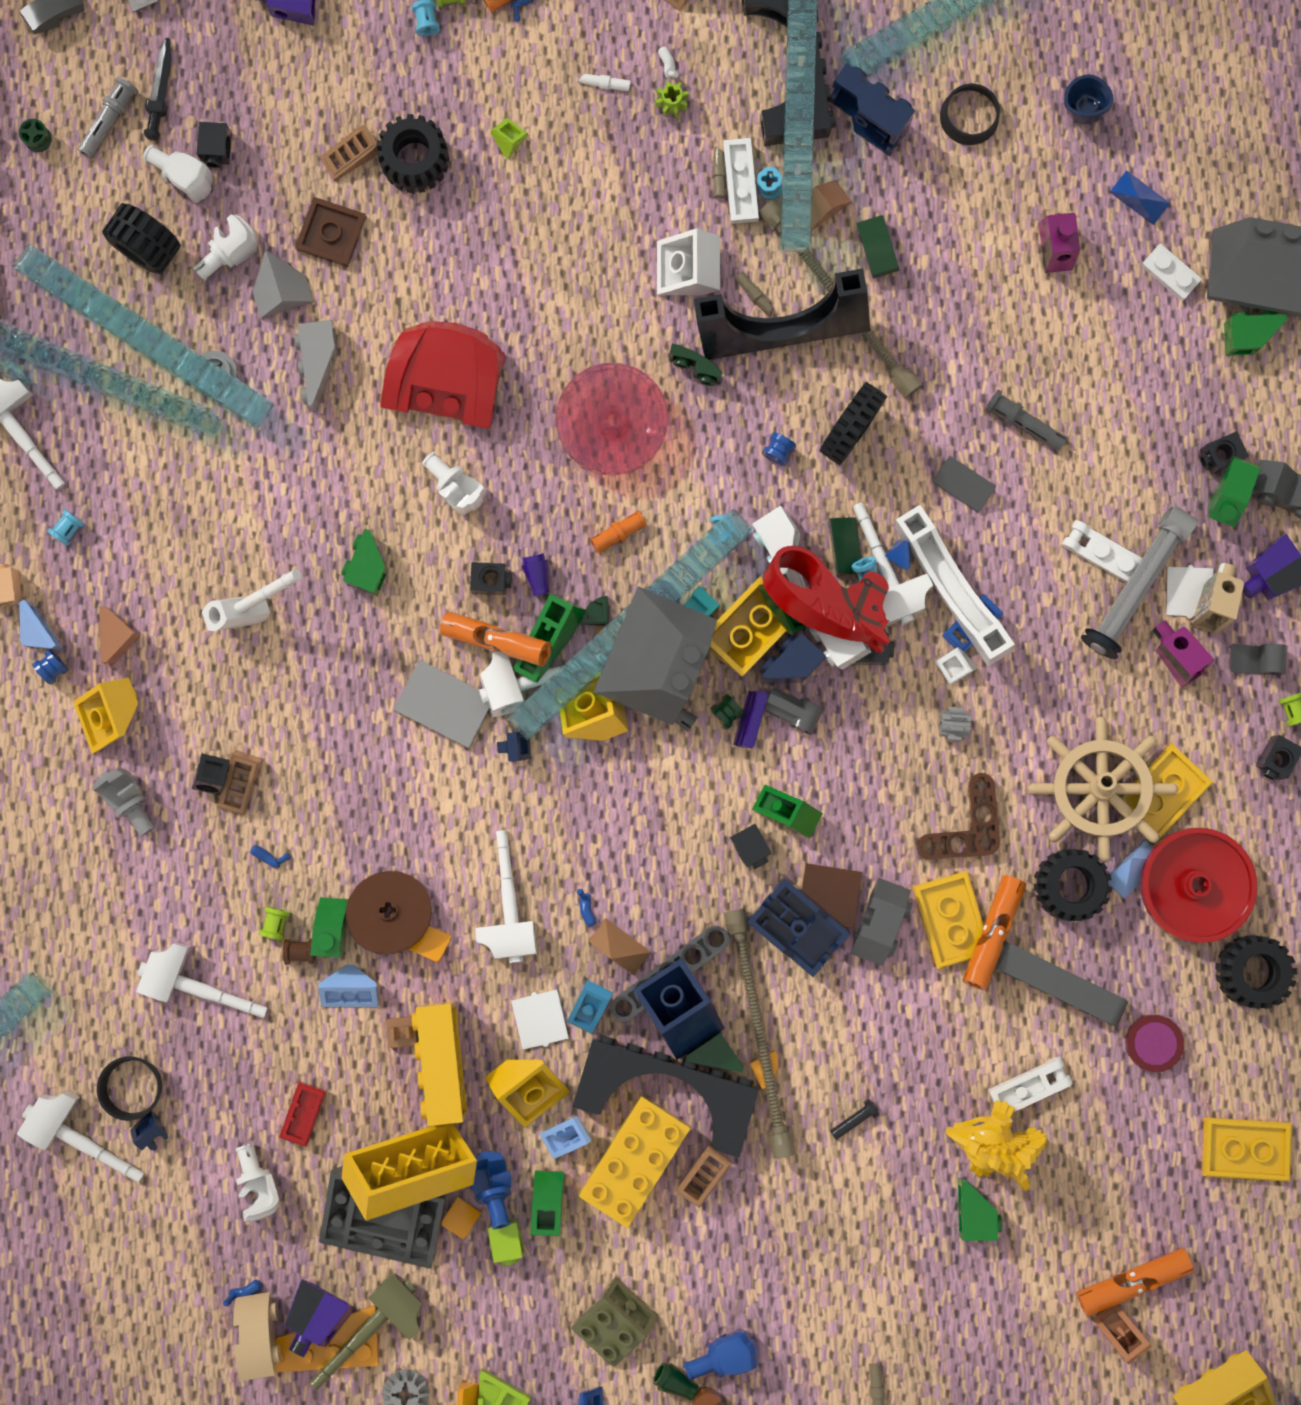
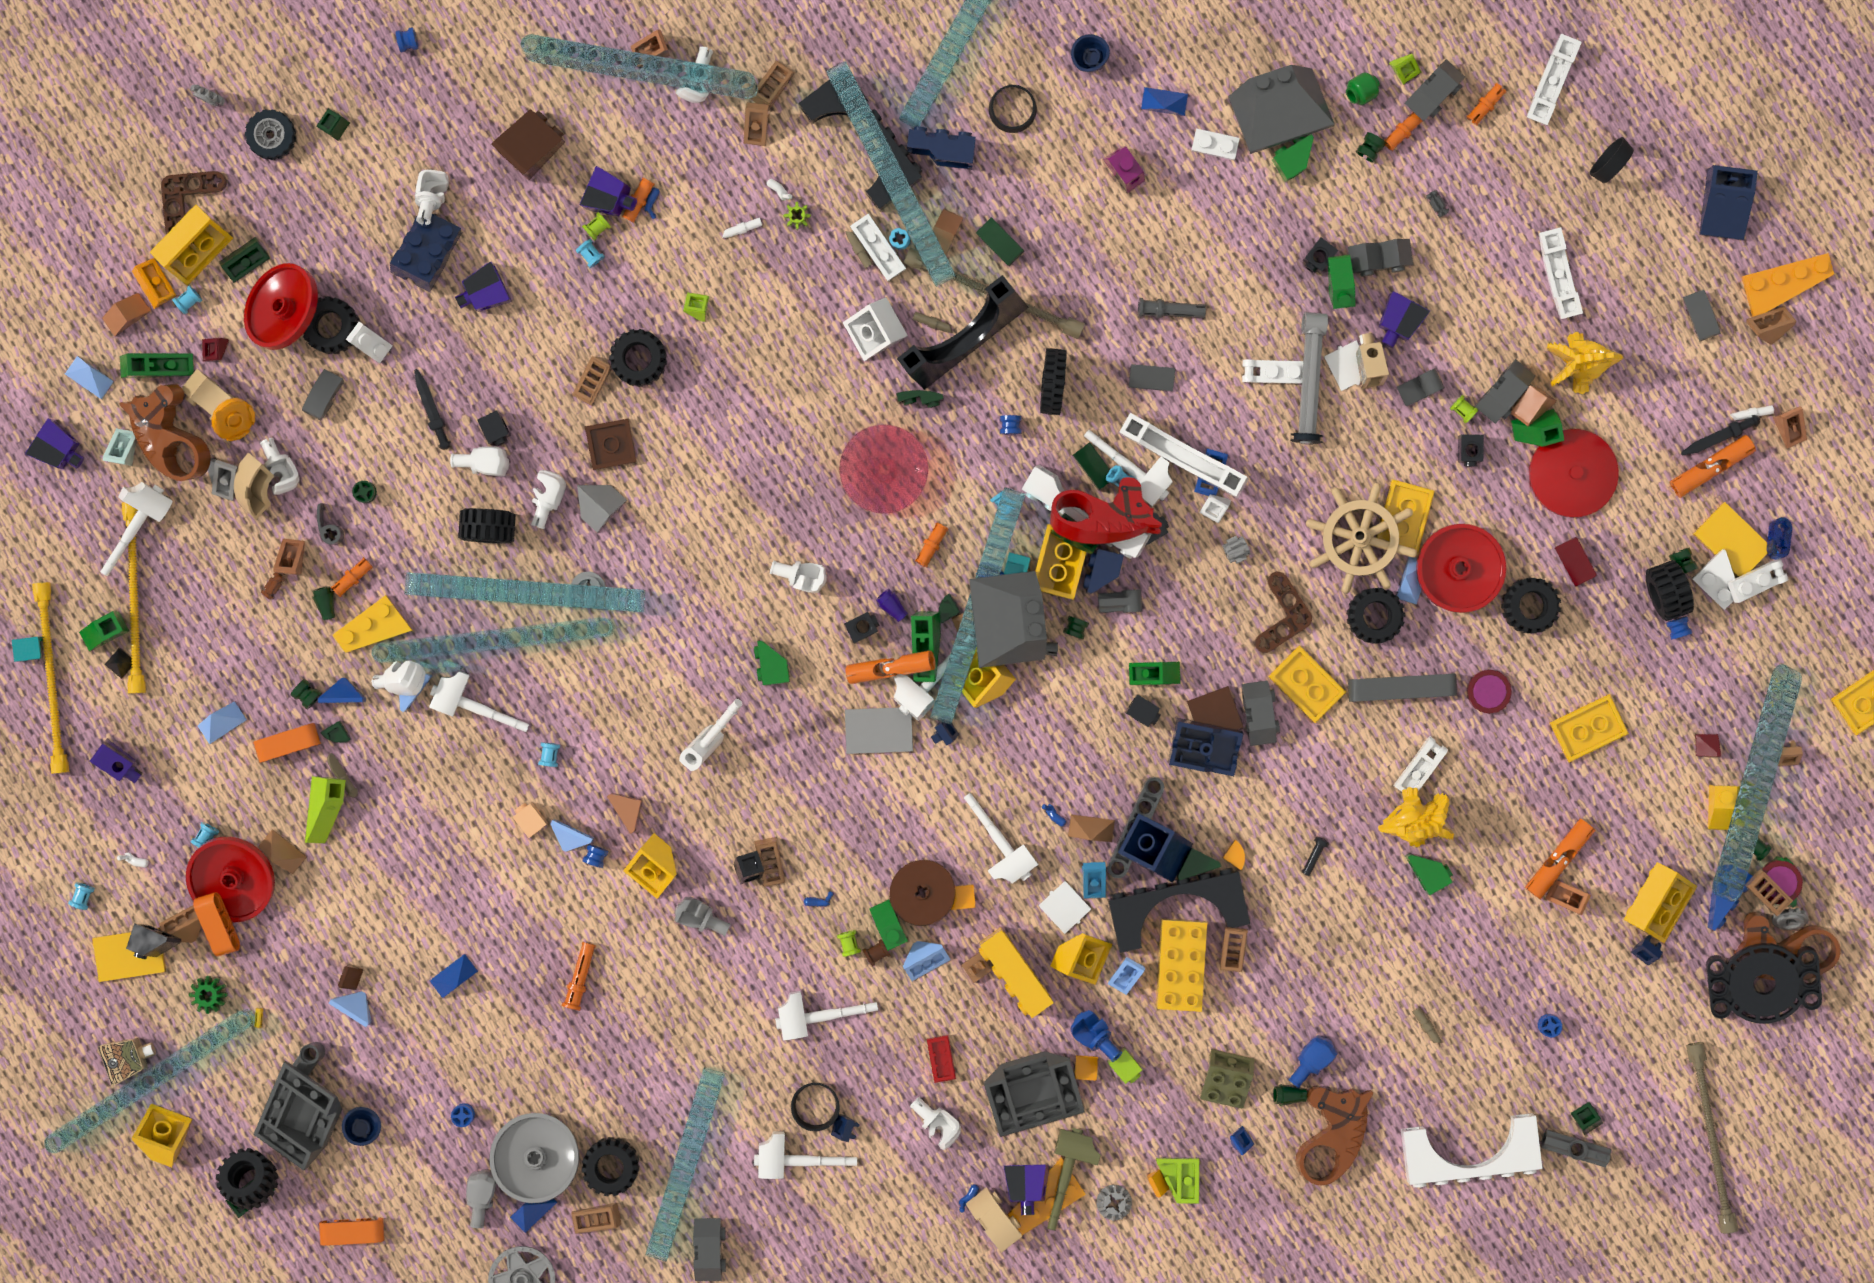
camera: 25 degrees left, 5 degrees up
(113, 107) = (407, 450): light grey pin -> none
(319, 354) = (653, 535): light grey slope -> none
(408, 1170) = (1035, 1053): yellow brick -> none
(444, 373) = (748, 500): red piece -> none
(547, 1203) = (1138, 1025): green slope -> none
(751, 721) = (1096, 625): dark purple tile -> none
(781, 1139) = (1272, 896): dark tan hose -> none
(900, 554) = (1134, 452): blue slope -> none
(991, 941) = (1341, 686): orange piece -> none
(1186, 662) = (1372, 420): magenta torso -> none

